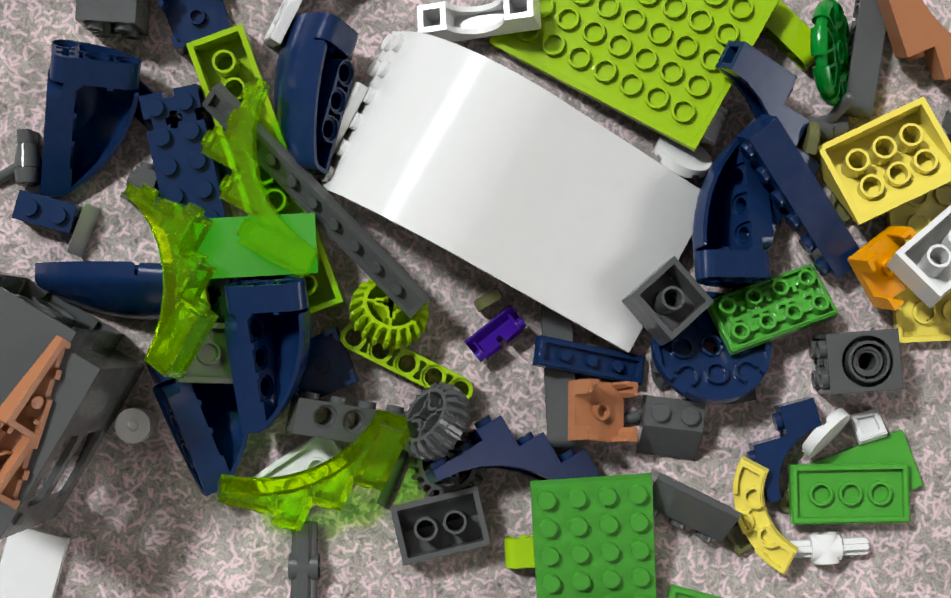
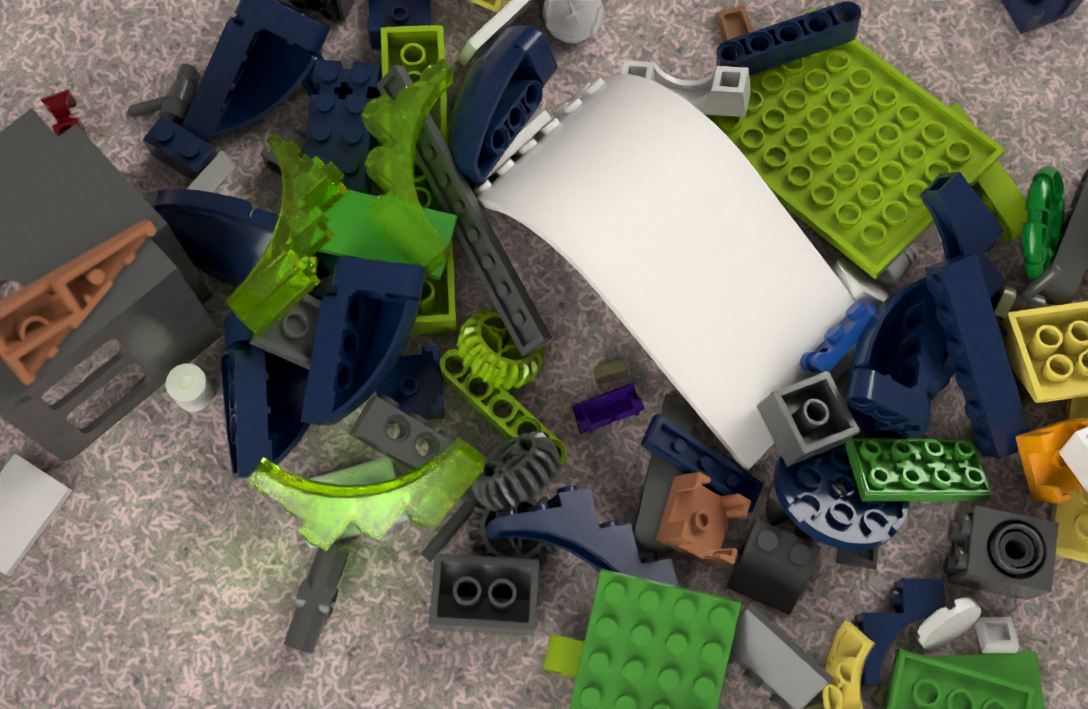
camera: 10 degrees right, 15 degrees down
(677, 220) = (839, 339): none -> blue plate

